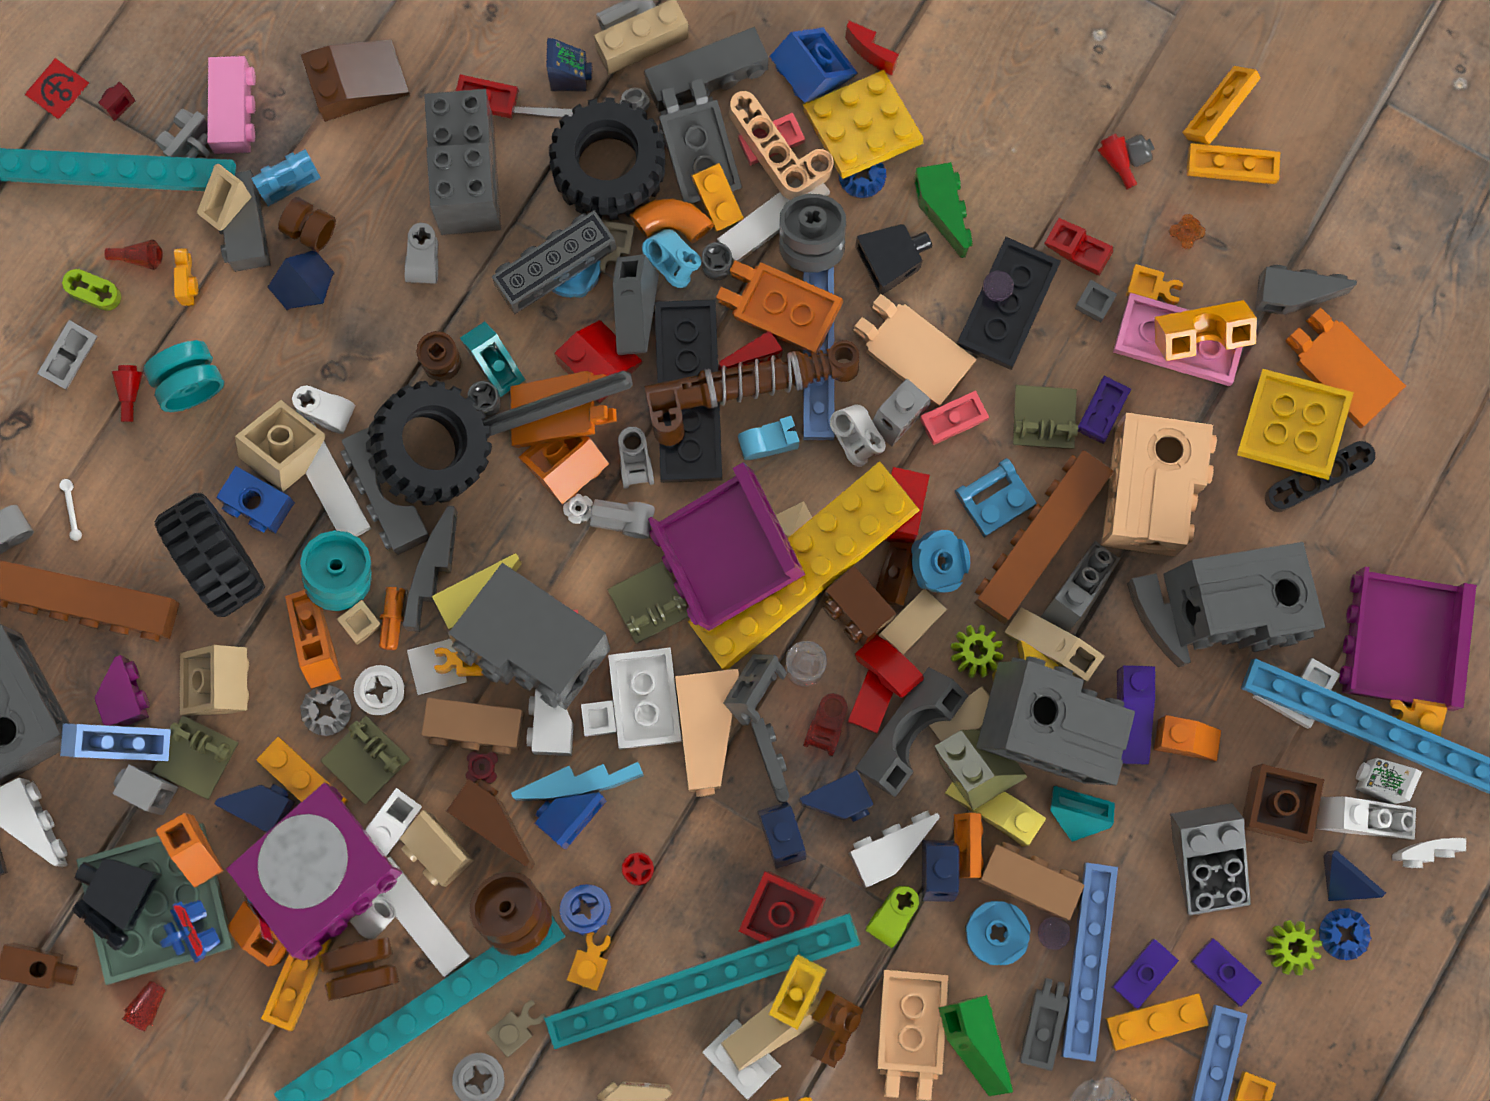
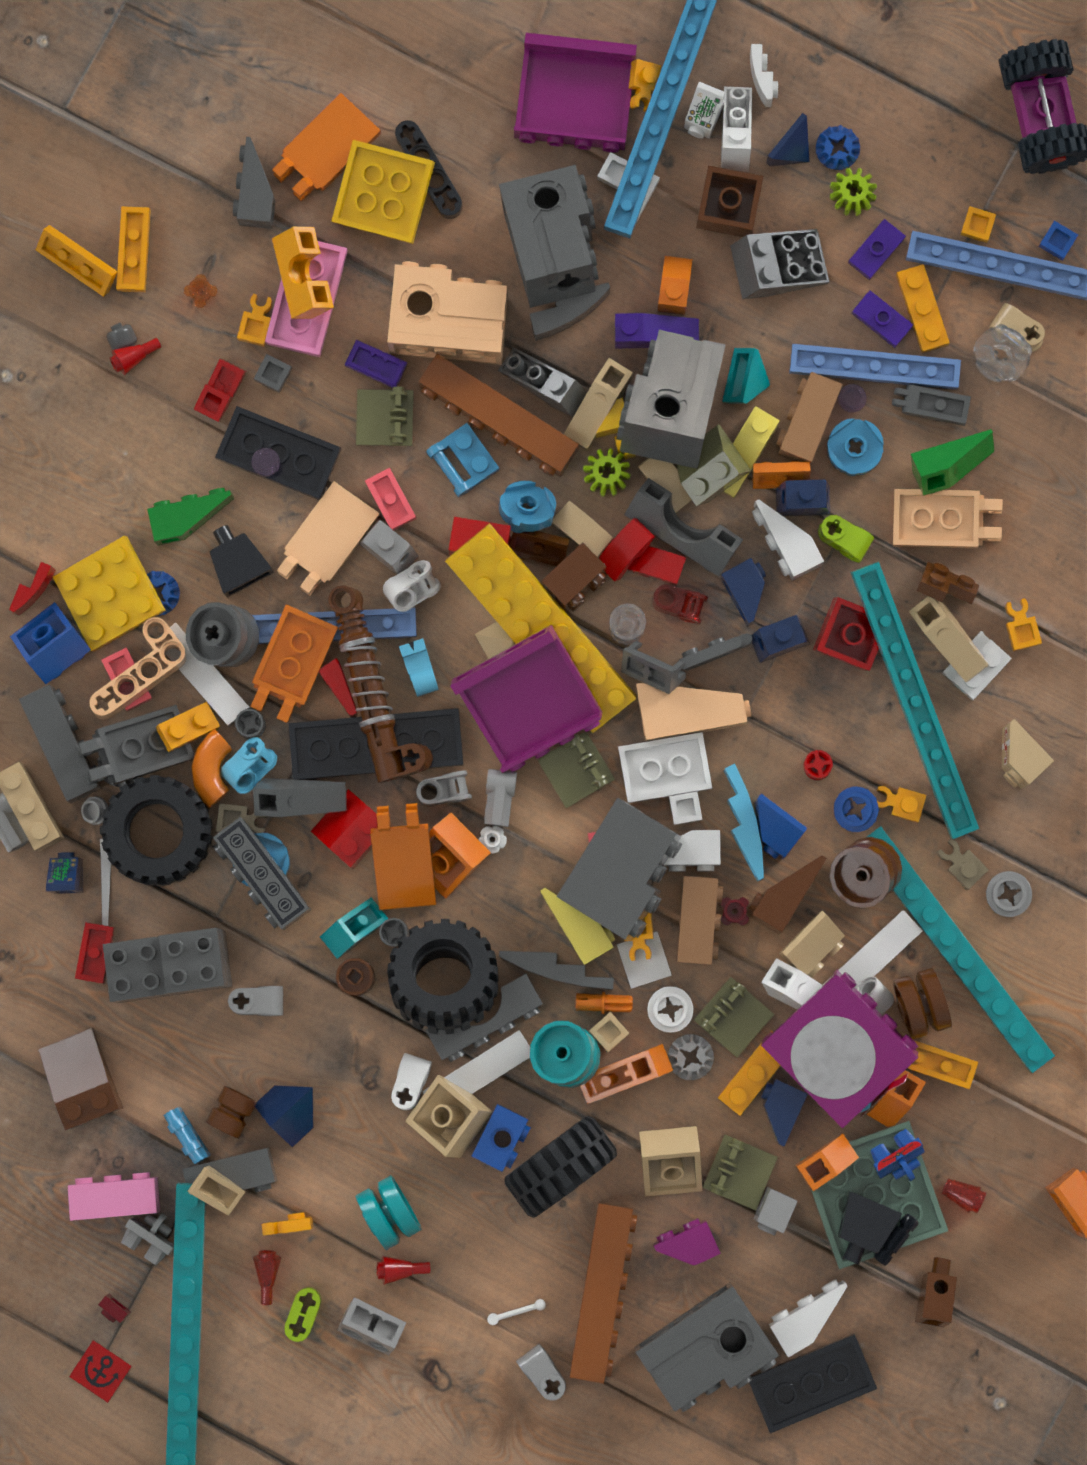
camera: 85 degrees left, 5 degrees up
(115, 742) = (735, 1239): light blue brick -> none
(559, 402) = (402, 856): dark grey axle -> none
(797, 992) = (921, 614): yellow slope -> none

